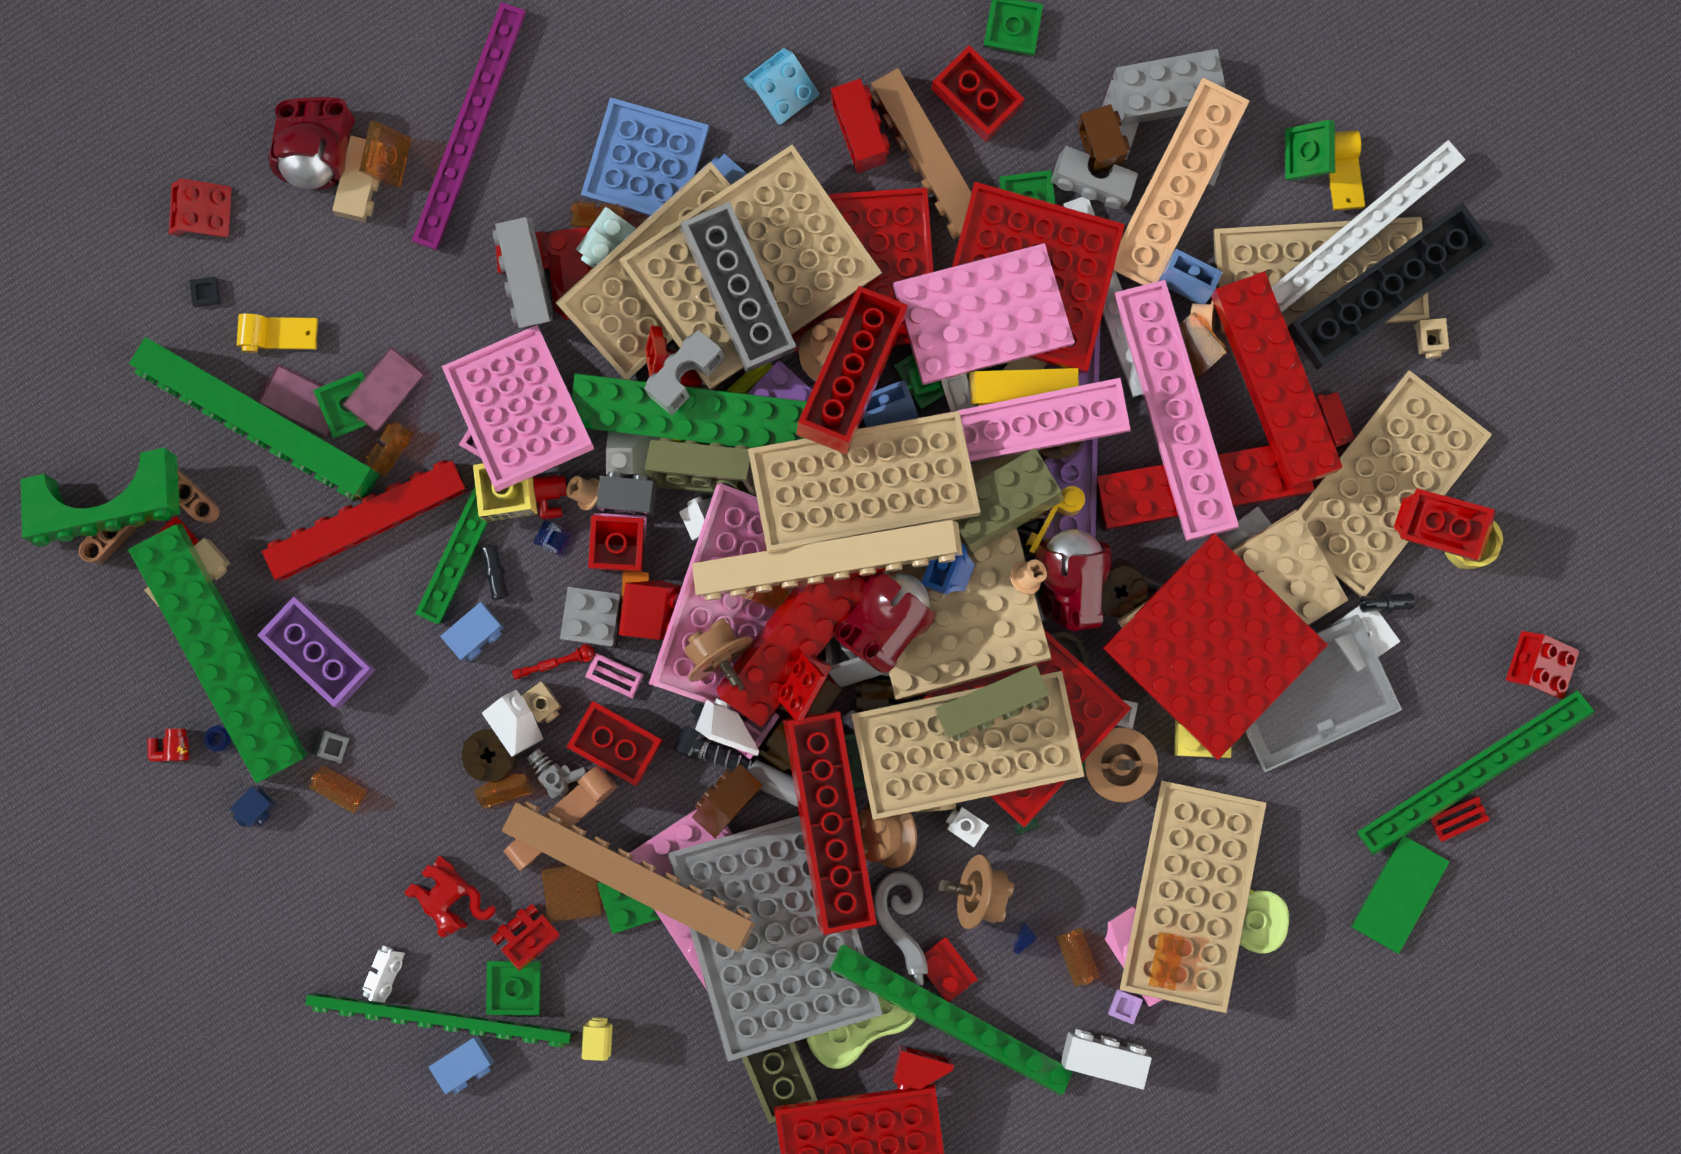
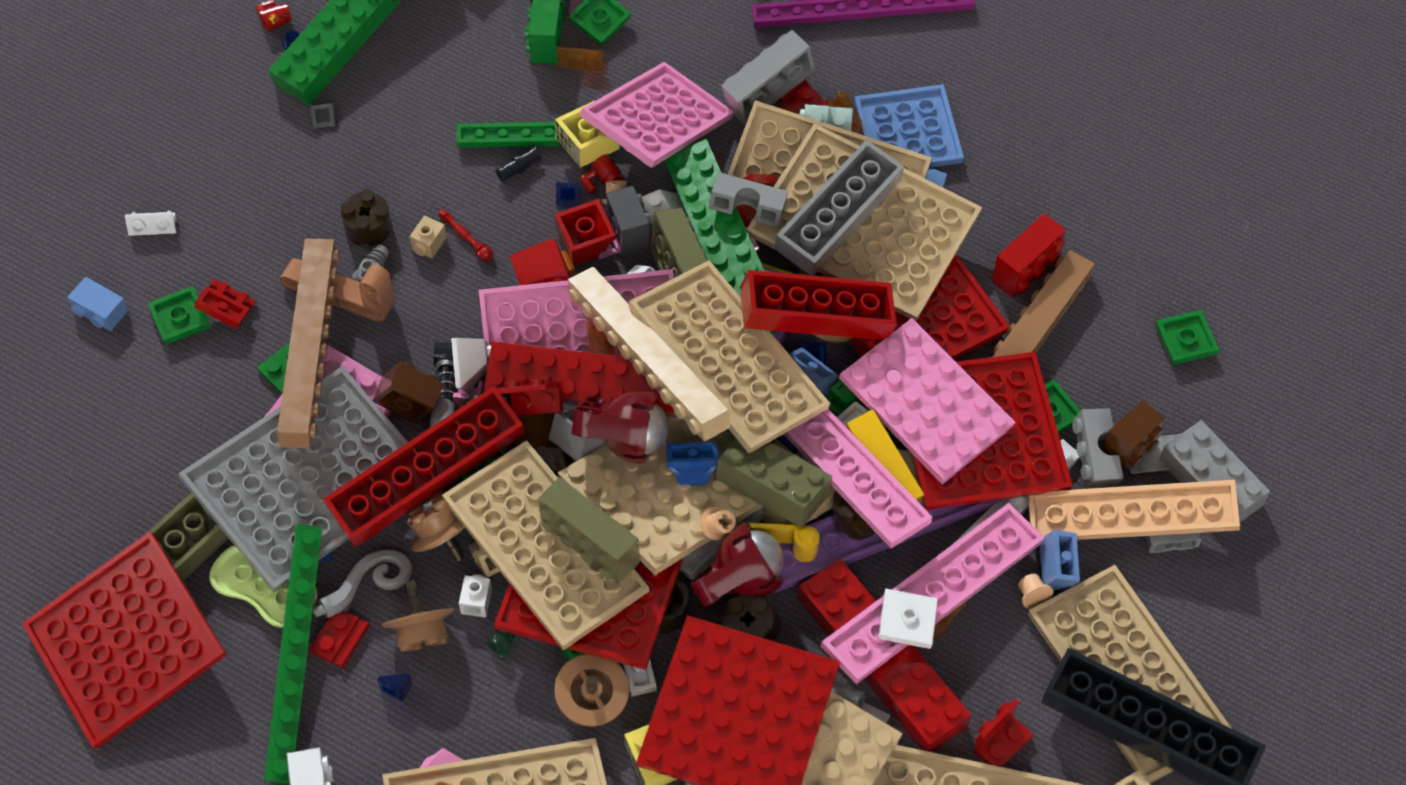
camera: 60 degrees right, 25 degrees down
(253, 807) = (249, 82): dark blue brick -> none
(316, 652) = (392, 72): medium lavender brick -> none
(337, 789) = (290, 132): clear orange hinge -> none
(365, 520) = (512, 62): red brick -> none
(383, 389) = (624, 33): clear pink piece -> none
(427, 1018) = (131, 282): green plate -> none
(444, 894) = (234, 234): red animal -> none
(473, 632) = (462, 168): medium blue brick -> none
(503, 791) = (347, 244): clear orange plate -> none
(513, 723) = (400, 217): white slope -> none
(570, 894) = (273, 324): clear orange tile -> none
(591, 617) = (512, 235): light grey brick -> none
(597, 1039) = (159, 385): light yellow brick -> none
(615, 743) = (418, 299): red brick -> none
(635, 685) = (477, 263): bright pink tile -> none
(716, 652) = (527, 319): medium nougat piece -> none
(782, 85) = (1027, 195): medium azure bracket -> none
(919, 1068) = (238, 639): red slope -> none
(977, 93) = (1111, 331): red brick -> none
(1077, 957) = (399, 741): clear orange hinge -> none
(1199, 450) = (907, 618): none -> white plate
(1201, 344) = (1001, 595): clear orange tile -> none
(1276, 380) = (1006, 659): red brick -> none
(1310, 150) = (1232, 609): green plate -> none
(1346, 181) = (1244, 647): yellow door -> none
(1366, 225) = (1186, 680): white plate -> none

